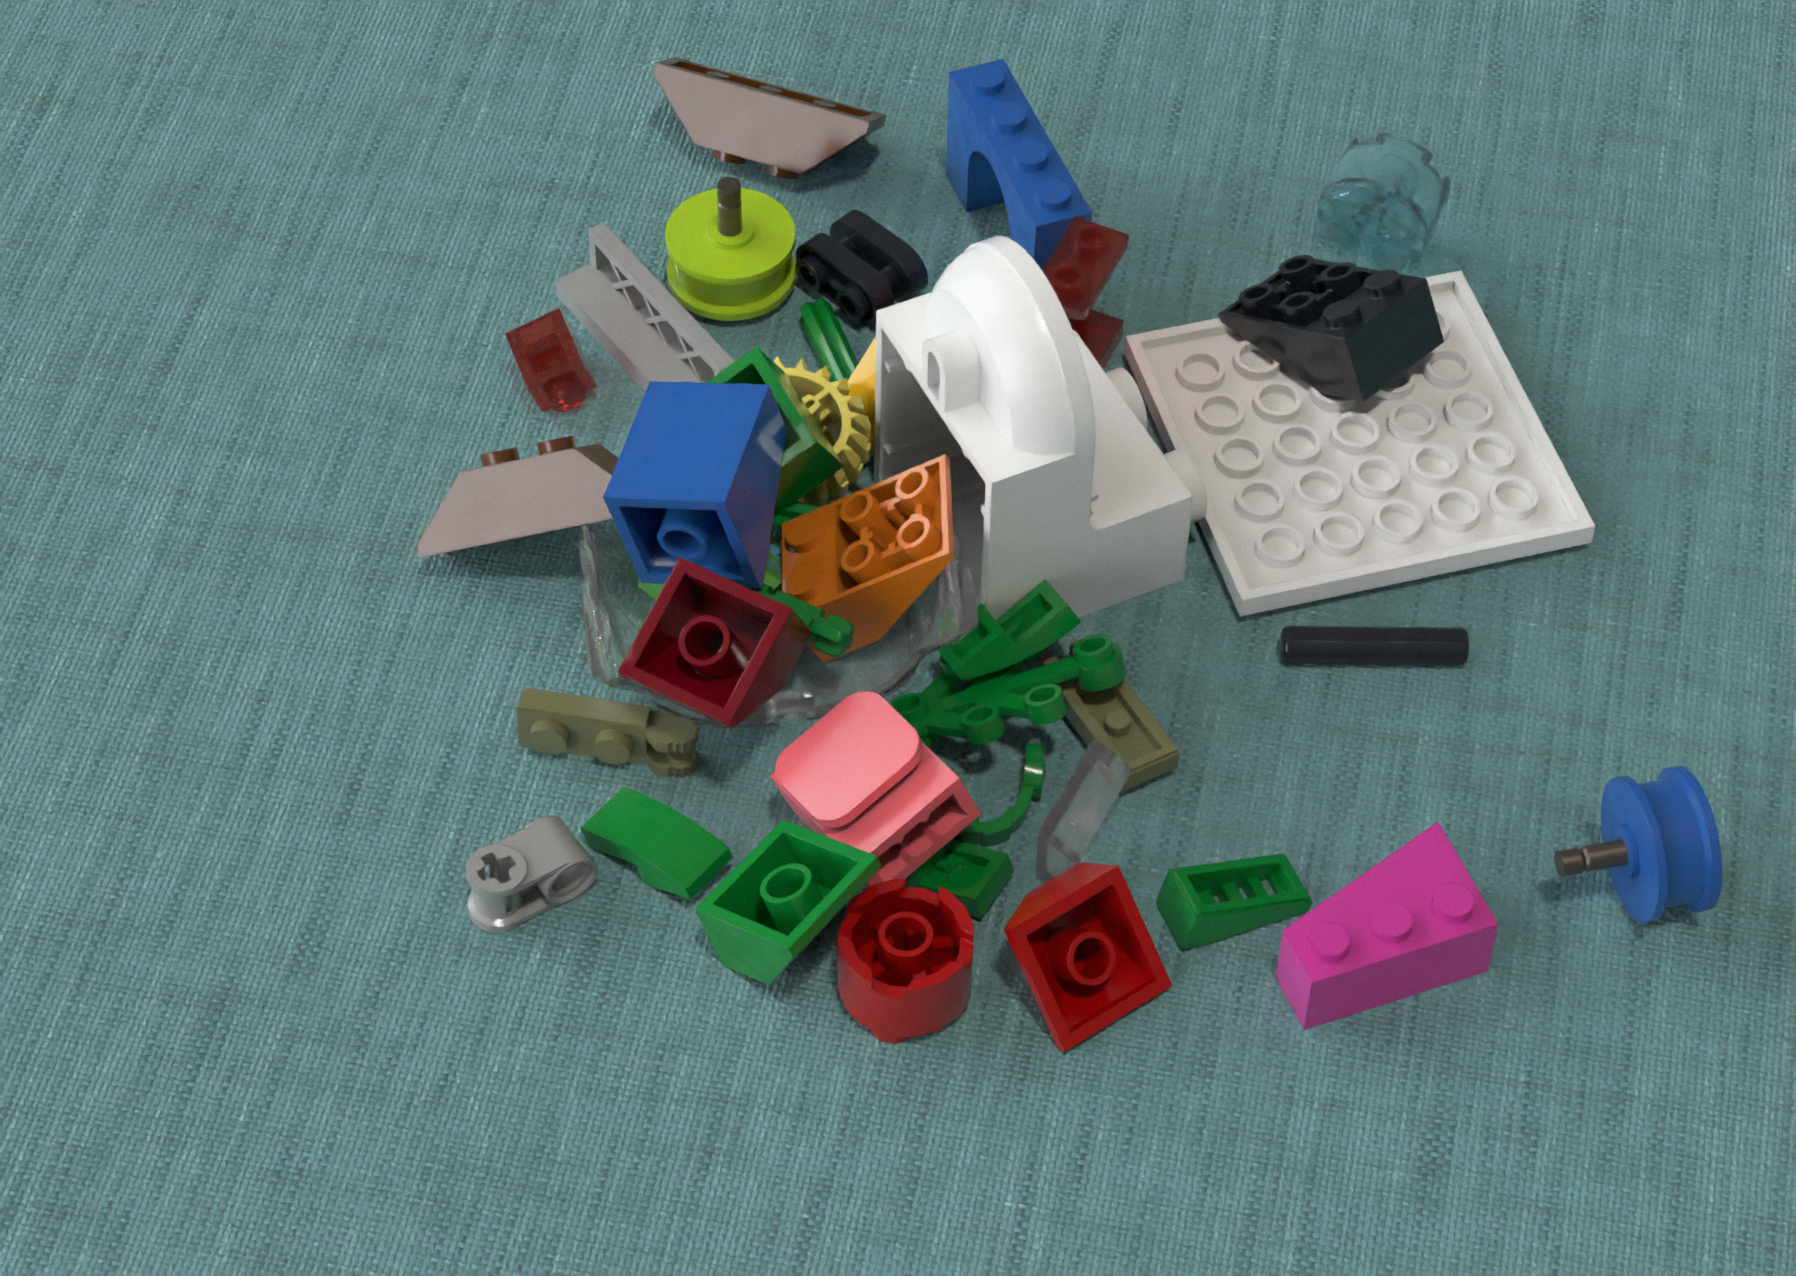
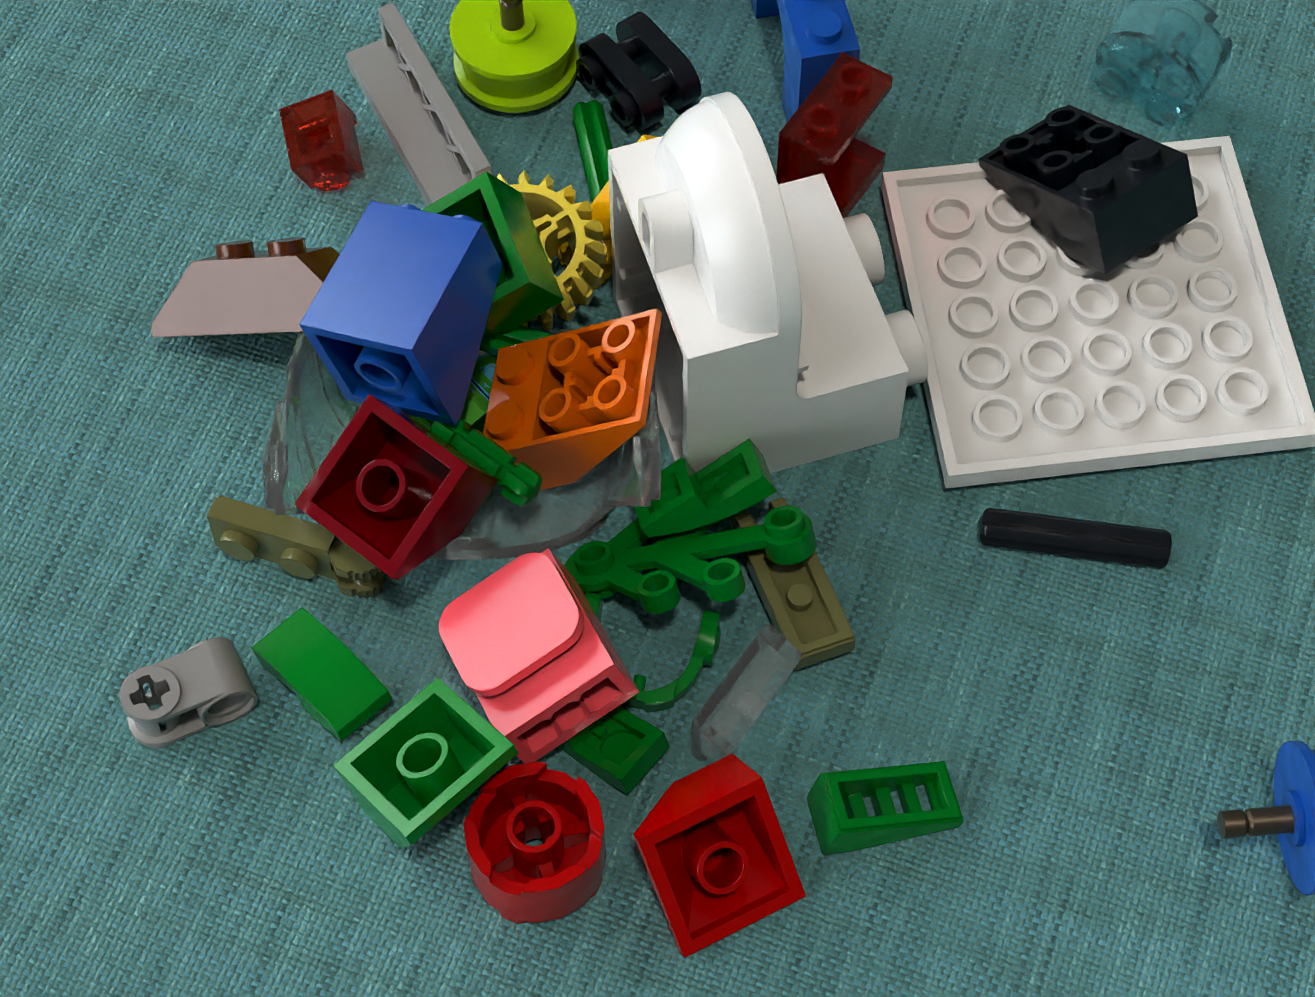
camera: 10 degrees right, 10 degrees up
(1388, 935) = (1033, 874): dark pink wedge -> none

